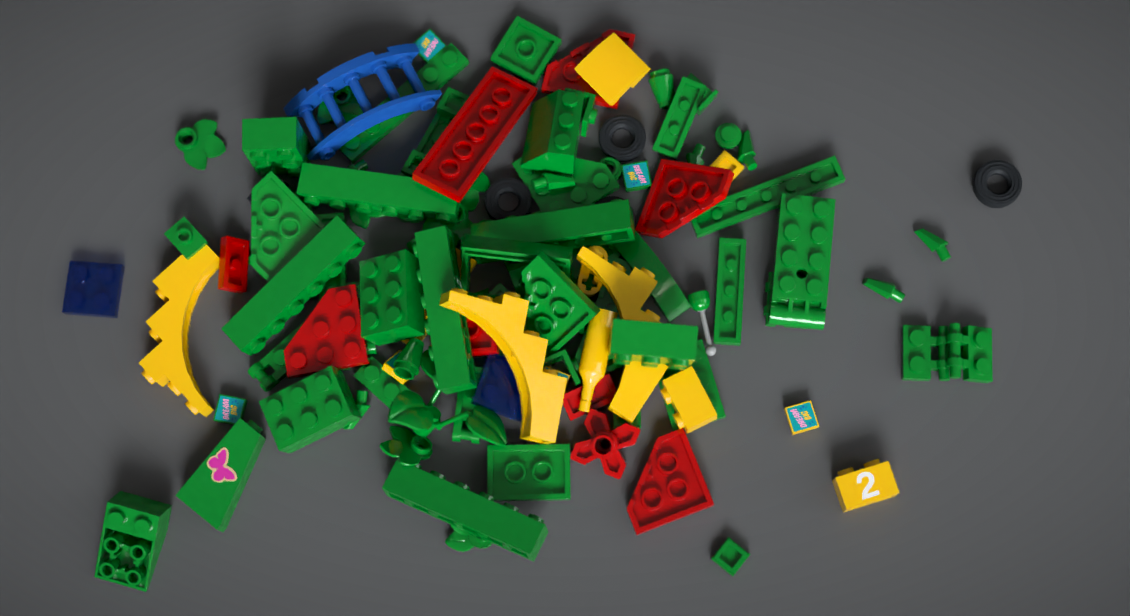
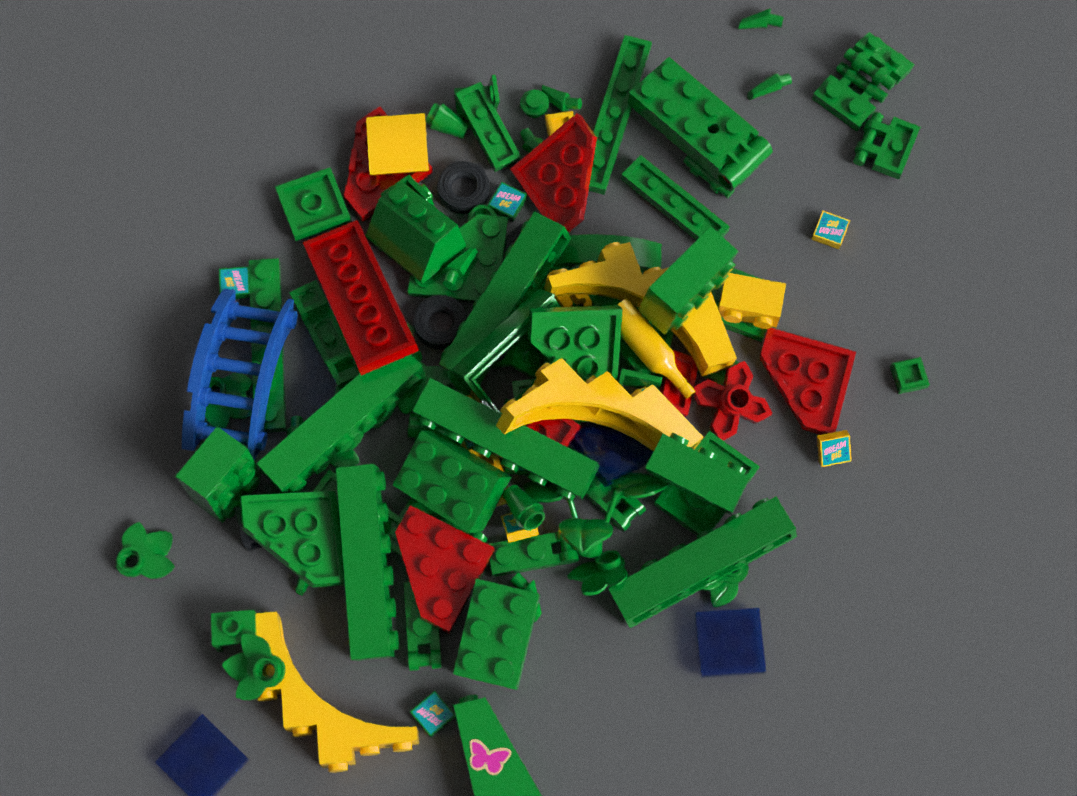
camera: 60 degrees left, 5 degrees down
(166, 270) = (251, 665): none -> green plate
(233, 264) = (293, 606): red plate -> none
(426, 571) = (730, 642): none -> clear blue plate
(516, 457) = (698, 473): none -> green slope
(626, 541) = (834, 448): none -> tile
(699, 302) = (666, 233): hinge -> none
(865, 485) = (931, 222): yellow brick -> none
(908, 416) = (895, 149): none -> green plate

